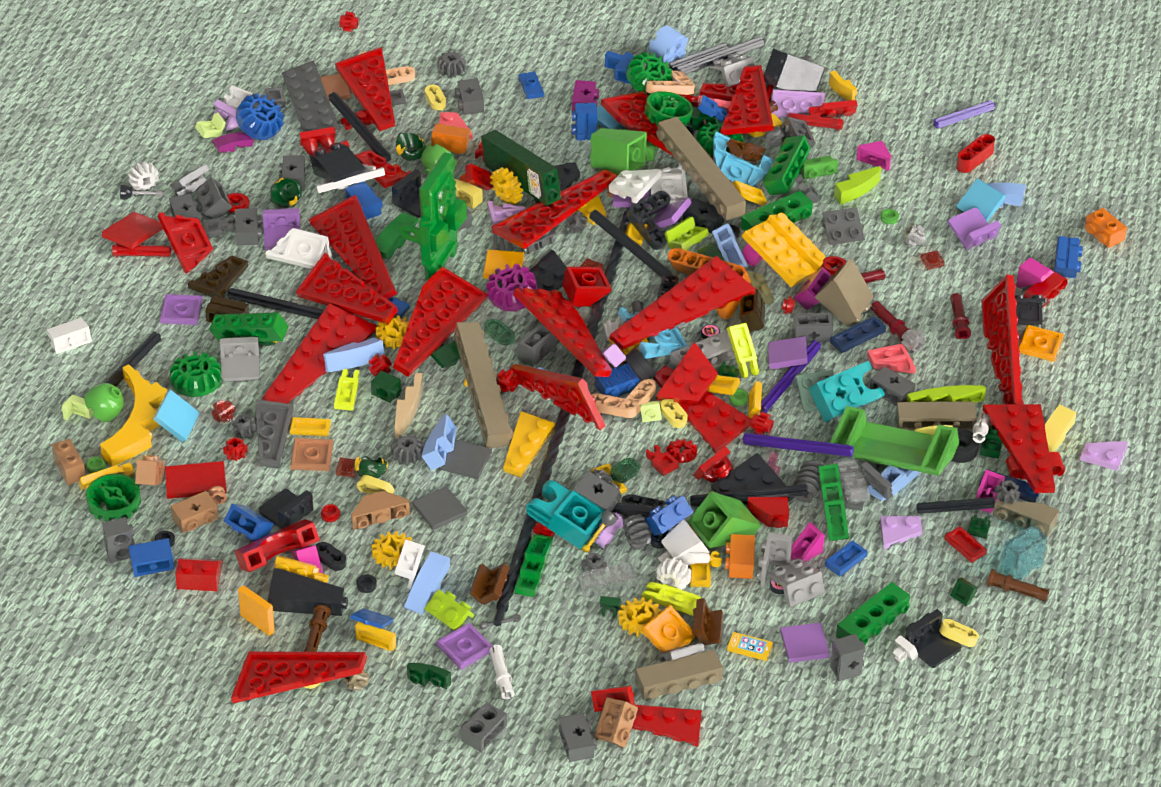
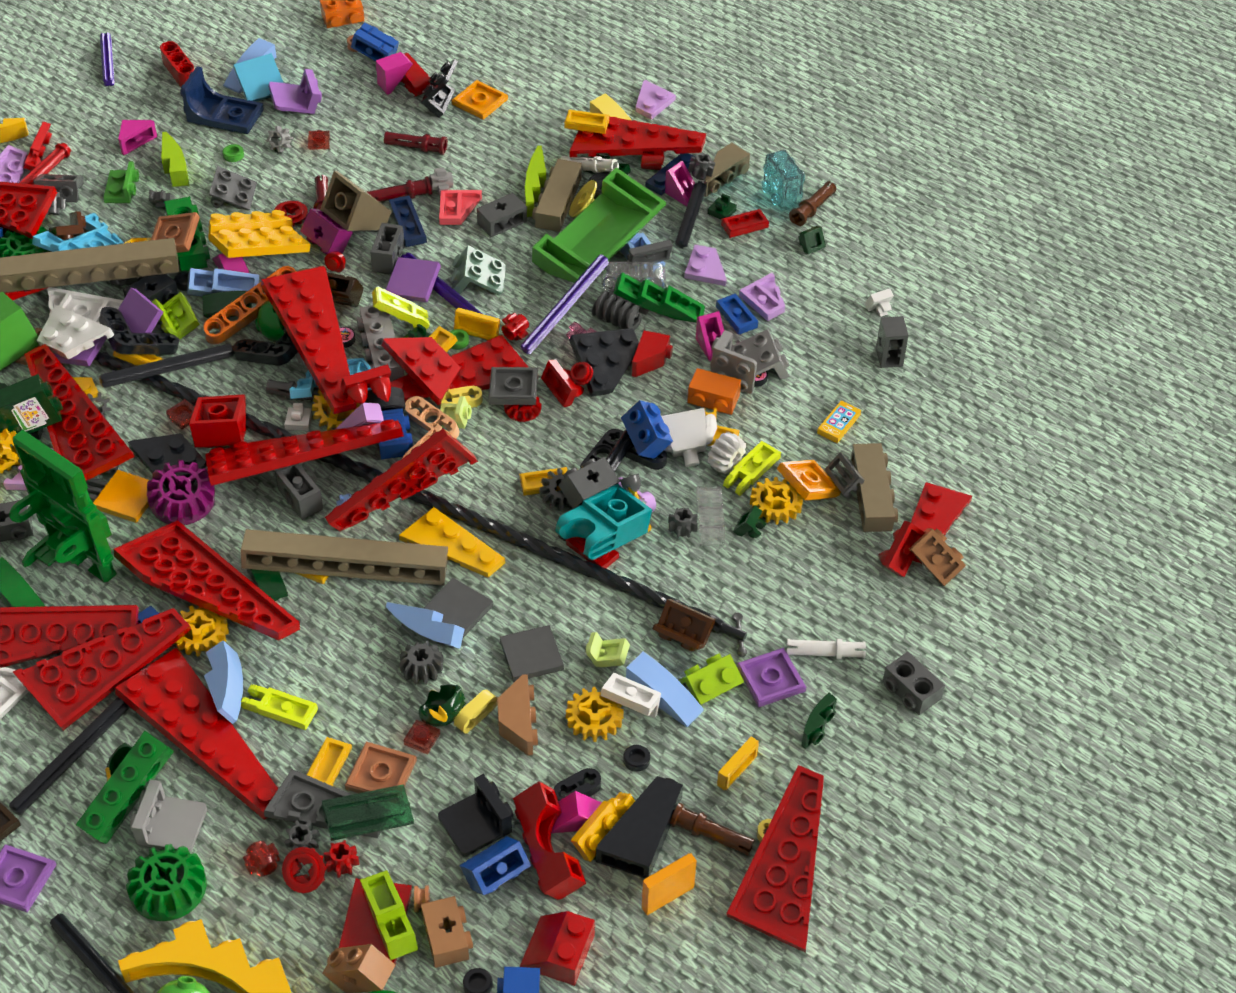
camera: 75 degrees left, 5 degrees up
(176, 415) = (250, 918): medium azure tile -> none
(196, 479) = (389, 915): none -> lime slope
(220, 432) = (292, 866): none -> red gear
(223, 305) = (58, 817): dark brown brick -> none
(271, 450) = (367, 812): none -> clear green piece
(330, 513) = (500, 772): red plate -> none
(372, 618) = (709, 759): blue piece -> none
(378, 364) = (256, 659): red gear -> none
(386, 386) = (297, 661): dark green brick -> none
(407, 408) = (349, 647): tan slope -> none
(452, 543) = (607, 652): none -> yellowish green bracket
(499, 332) = (235, 528): clear green tile -> none
(507, 380) = (345, 529): red gear -> none
(533, 565) = (659, 578): green slope -> none
(576, 737) = (947, 599): dark grey brick -> none
(625, 470) = (538, 460): clear green tile -> none
(637, 531) = (651, 467): dark grey gear -> none
(639, 345) = (377, 379): none -> red tile
(662, 462) = (537, 424): red plate -> none
(694, 436) = (513, 386): none -> dark grey tile
(707, 623) = (805, 444): reddish brown bracket -> none
(721, 517) = (664, 386): bright green slope -> none
(763, 204) = (178, 226): none -> nougat tile
(784, 491) = (625, 363): black axle -> none
(787, 165) = (111, 203): green brick -> none
(804, 642) = (844, 377): medium lavender tile -> none
(843, 390) = (504, 247): brick -> none
(875, 613) = (828, 313): green brick -> none
(876, 572) = (764, 297): none -> lavender wing
(929, 642) = (871, 278): black bracket -> none
(933, 186) = (216, 110): none -> dark blue bracket
(958, 632) = (867, 258): light yellow beam -> none
(1001, 329) = (470, 109): red wing -> none
(1020, 403) = (586, 121): none -> yellow tile

